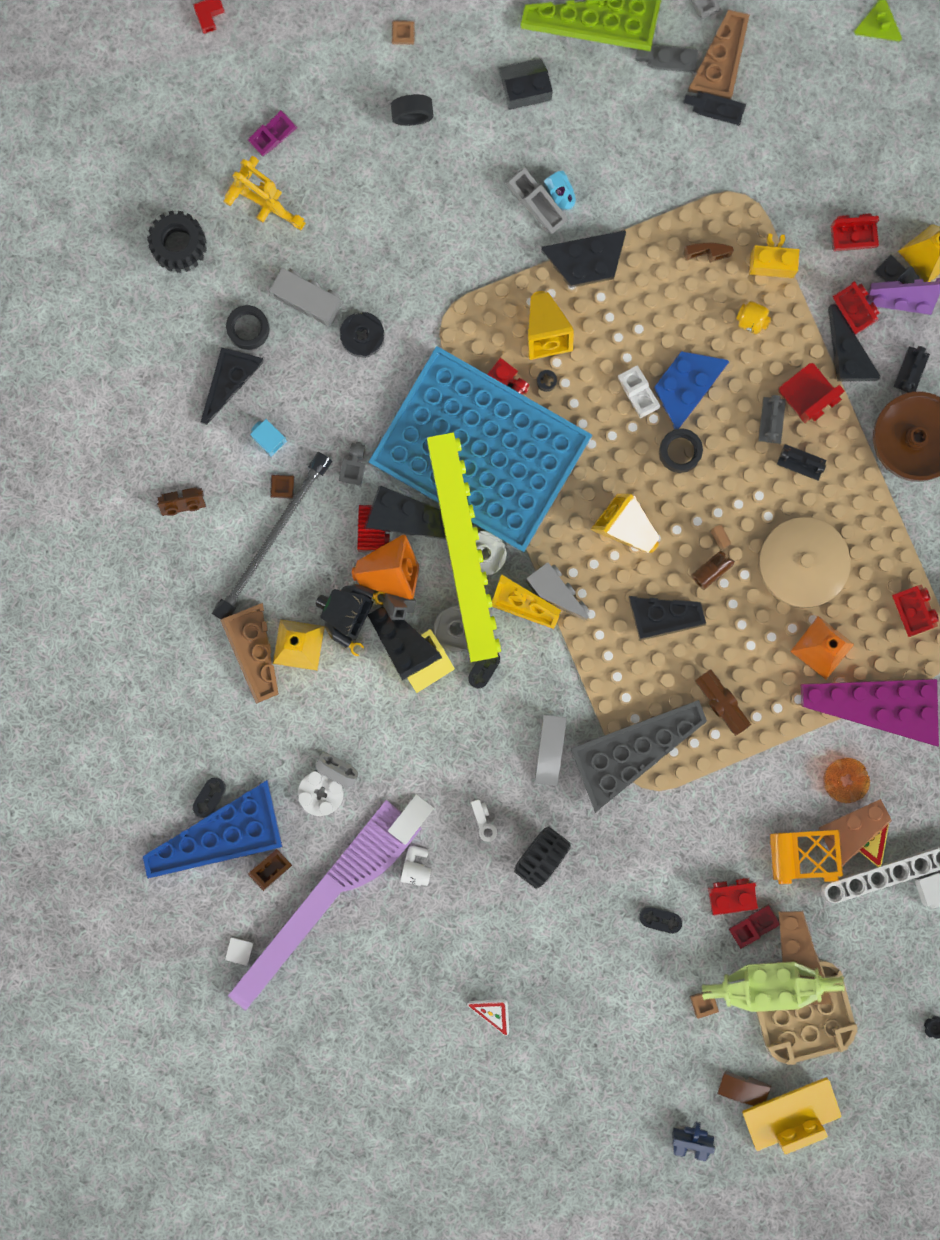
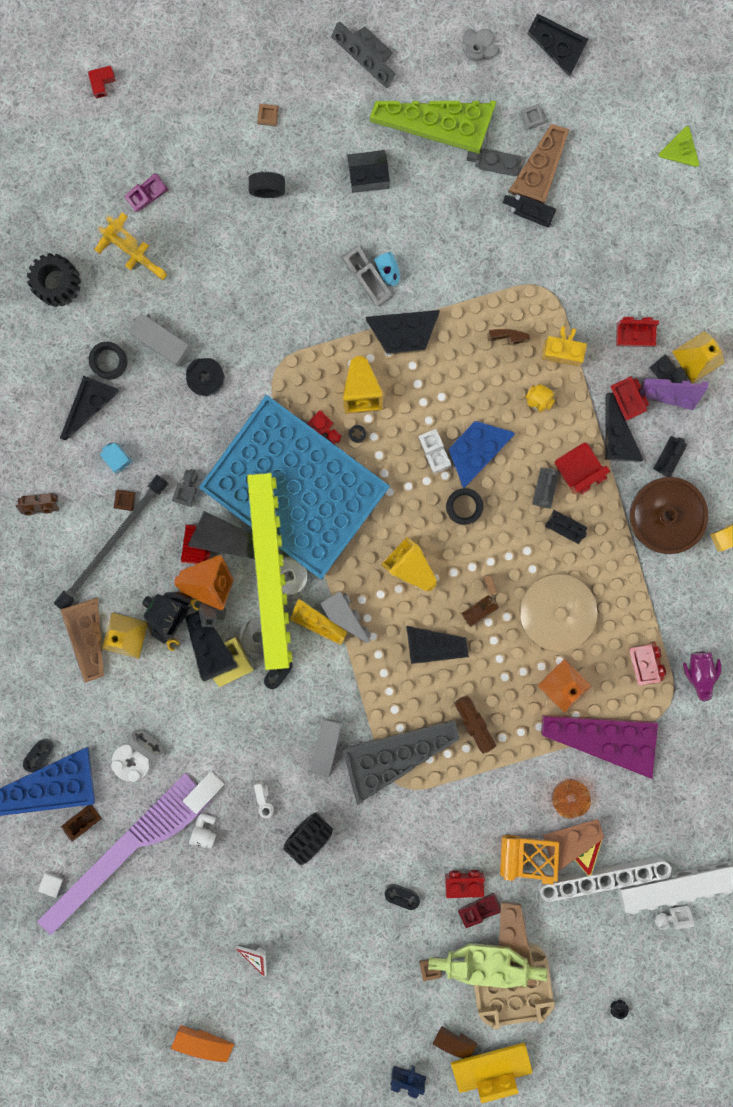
camera: 20 degrees right, 5 degrees up
(441, 1124) = (201, 1044): none -> orange slope

